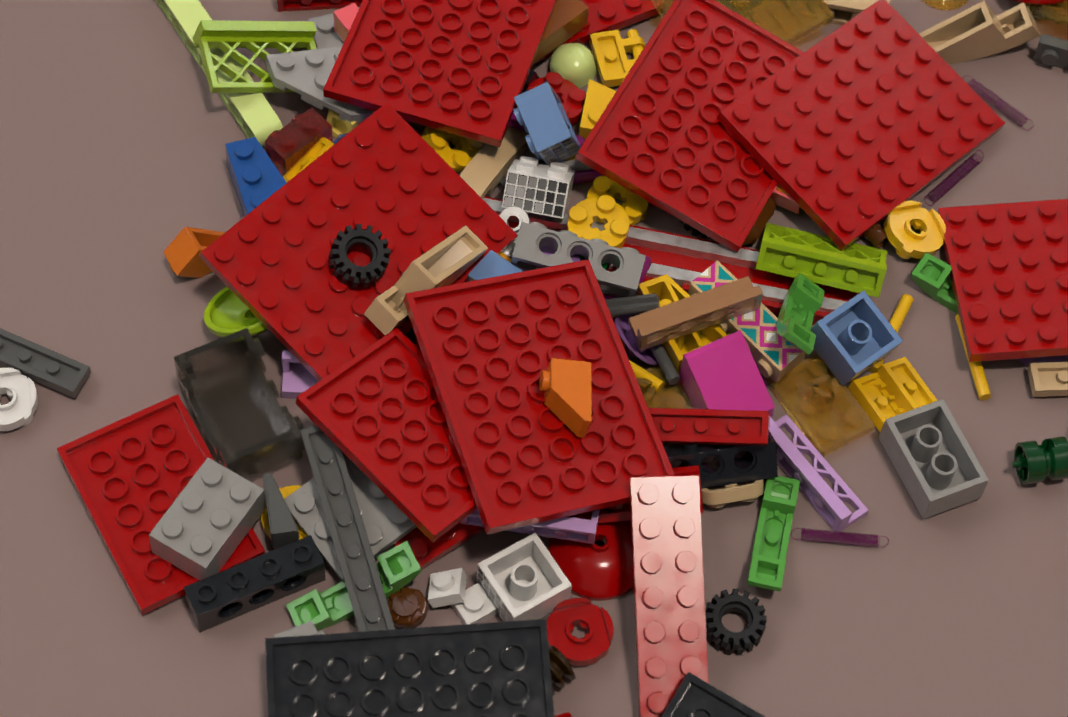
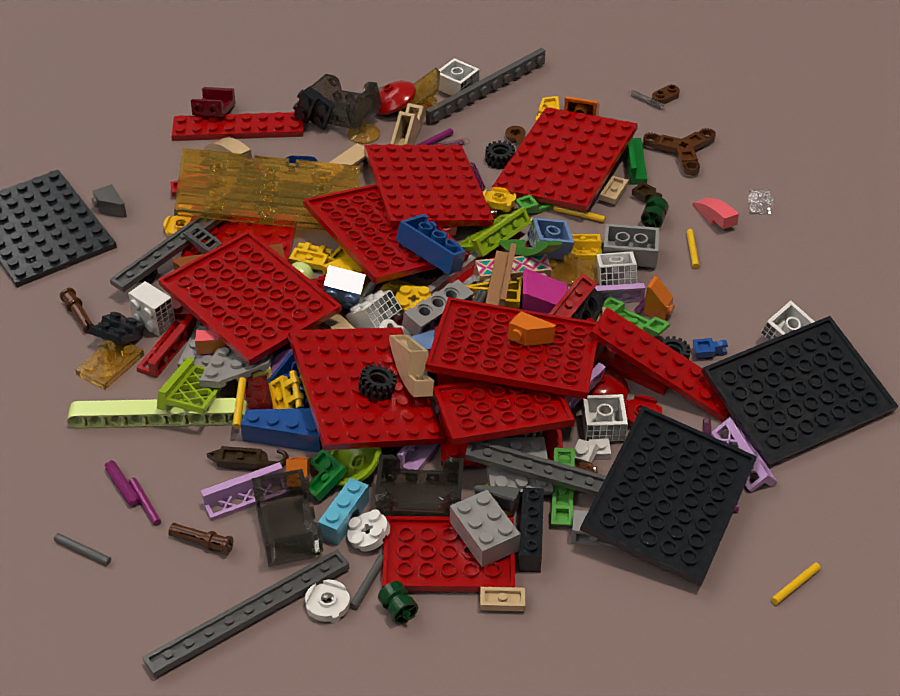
camera: 55 degrees left, 15 degrees down
(29, 218) = (209, 540): none -> reddish brown pin
(41, 476) = (398, 603): none -> dark green wheel
(57, 115) = (145, 502): none -> magenta bar
(58, 431) = (367, 582): none -> dark grey bar
(71, 75) = (122, 483): none -> magenta axle
(100, 284) = (286, 517): none -> clear smoke windscreen
(117, 604) = (502, 599): none -> tan plate
(126, 385) = (359, 525): none -> white plate
(133, 203) = (239, 487): none -> lavender fence
(136, 337) = (350, 500): none -> medium azure arch
(189, 184) = (244, 457): none -> dark brown plate
(199, 292) = (329, 474): none -> green plate
(266, 122) = (239, 403): none -> yellow bar
(699, 181) = (431, 244): none -> blue wedge
(781, 665) = (707, 348): none -> blue plate
(829, 550) = (658, 300): none -> orange slope
(856, 461) = (616, 268): none -> white brick
(994, 80) = (438, 137): none -> magenta bar
(1008, 554) = (692, 247): none -> yellow bar
(1027, 170) = (499, 154): none -> black tyre

